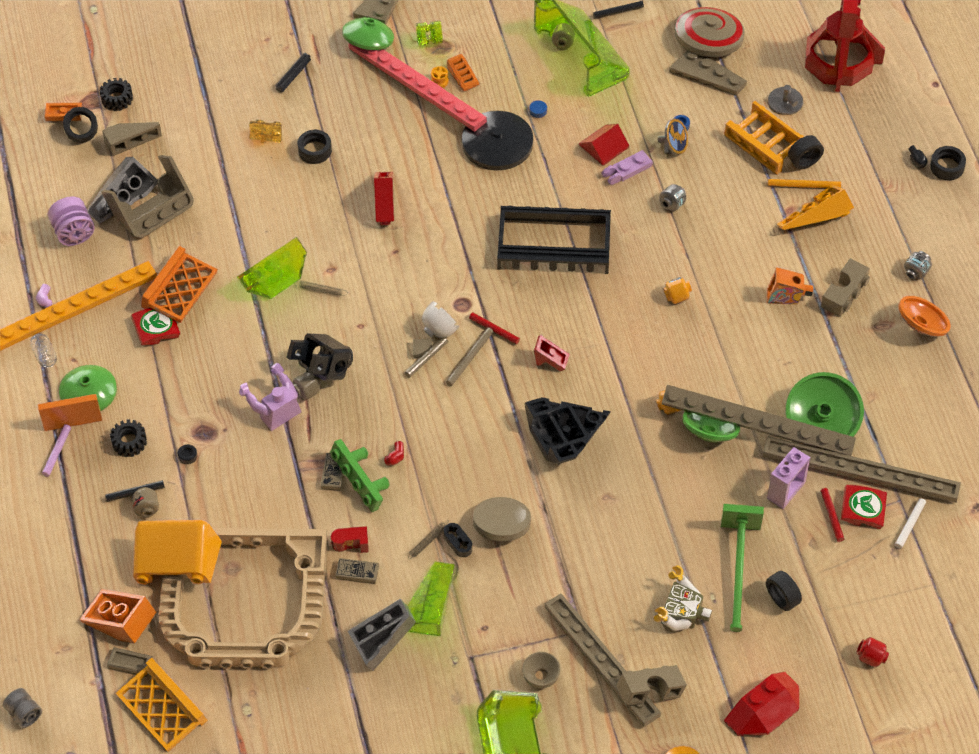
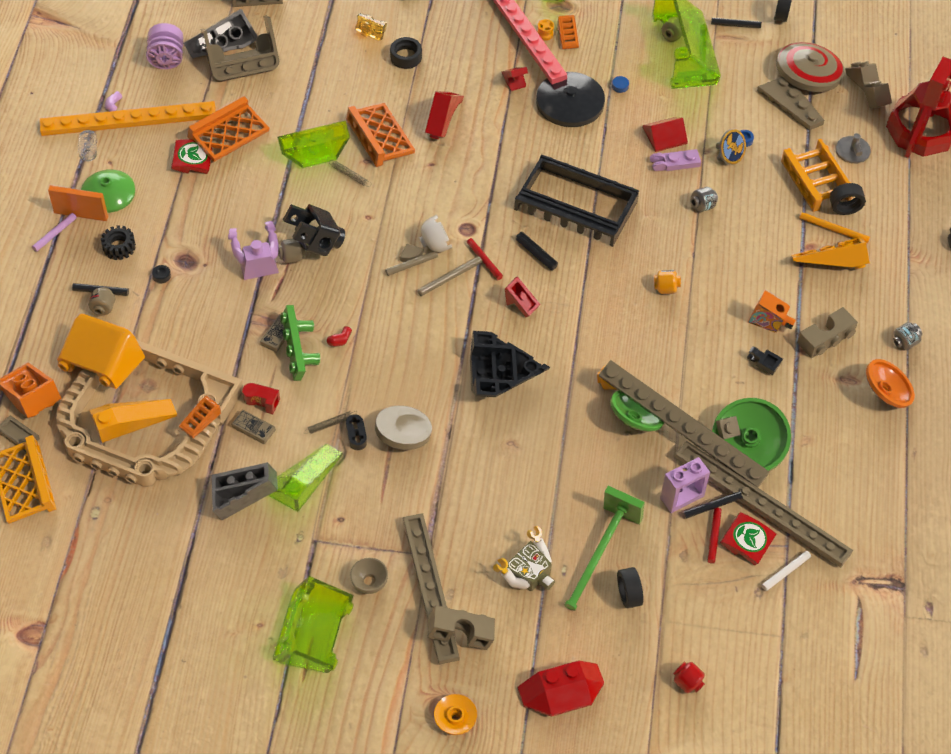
camera: 20 degrees right, 0 degrees up
(234, 607) = (126, 417): none -> light orange wedge
(310, 567) = (211, 414): none -> orange slope
(320, 244) = (368, 136): none -> orange fence
(434, 135) = (515, 77): none -> red slope
(540, 303) = (537, 251): none -> black axle
(769, 26) = (867, 78): none -> dark tan arch
(801, 409) = (728, 427): none -> dark tan plate
(803, 333) = (766, 361): none -> black plate
(819, 486) = (713, 504): none -> black bar

